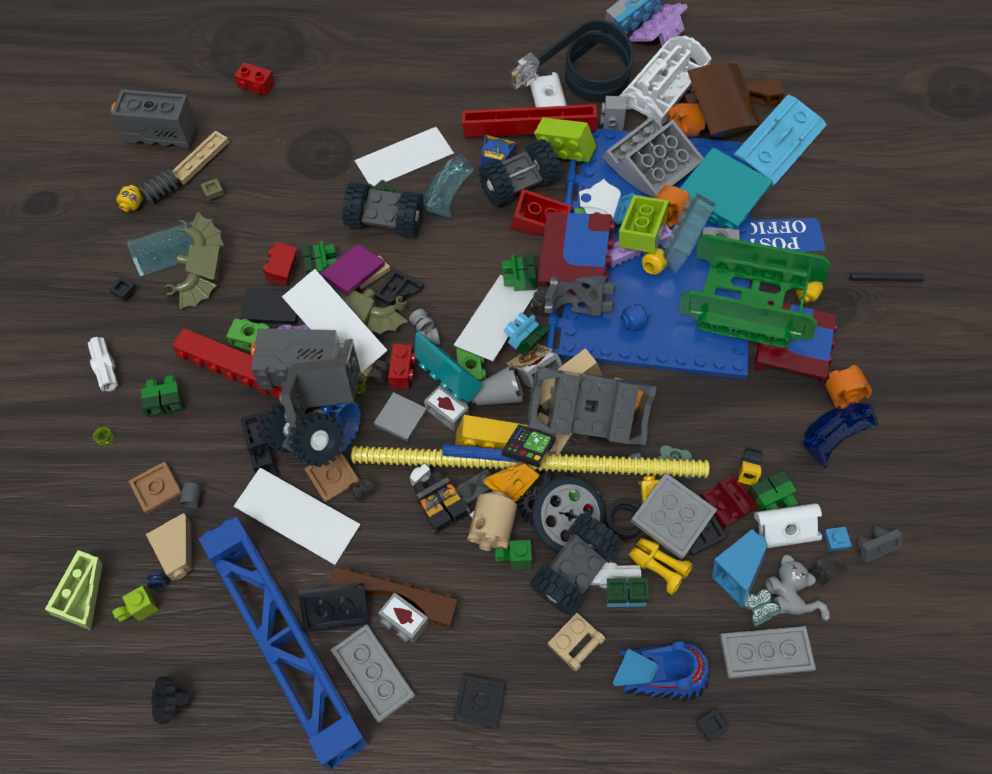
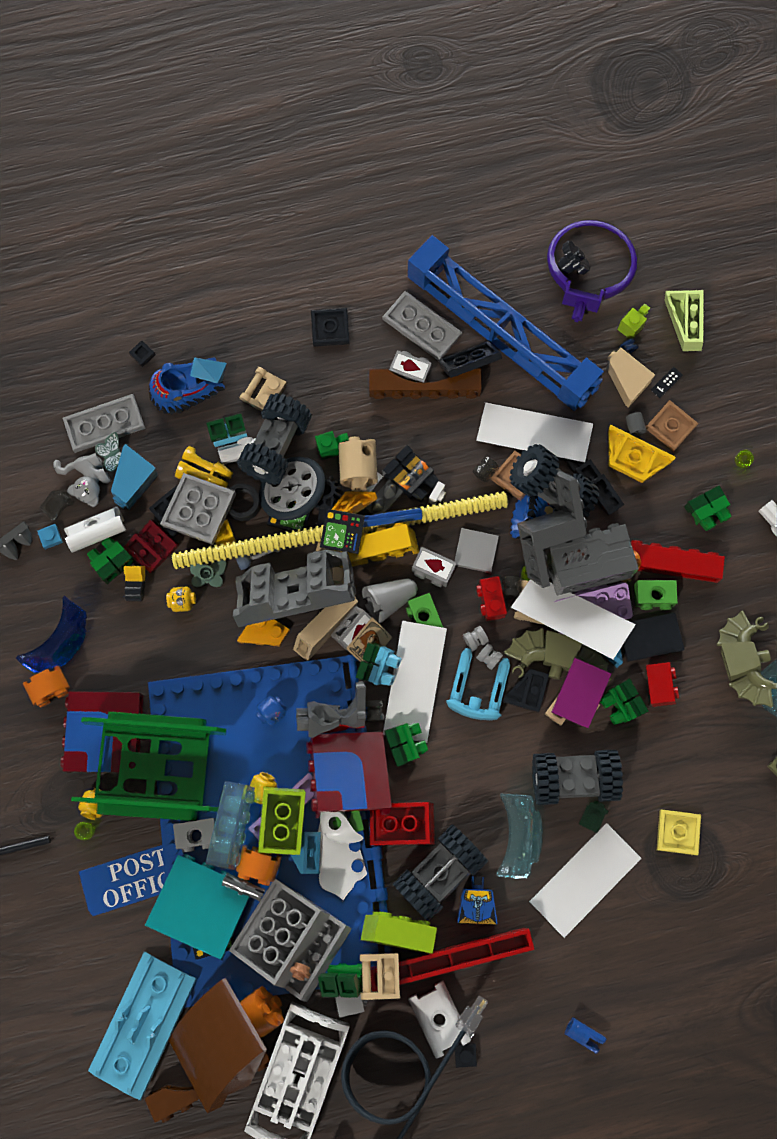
camera: 165 degrees right, 15 degrees up
(135, 536) = (666, 382): none -> black sticker
(180, 652) = (583, 300): none -> dark purple brick
(207, 464) = (634, 455): none -> yellow wing
(317, 168) = (678, 832): none -> light yellow tile
(444, 68) = (581, 1033): none -> blue hinge
(446, 369) = (443, 597): teal slope -> none
(451, 283) = (473, 709): none -> medium azure piece
(582, 107) = (386, 976): none -> tan plate
(616, 117) = (341, 981): none -> dark green hips
(650, 127) = (300, 971): none -> nougat plate
(685, 186) = (243, 887): none -> dark grey pin
(705, 438) = (180, 599): none -> yellow head

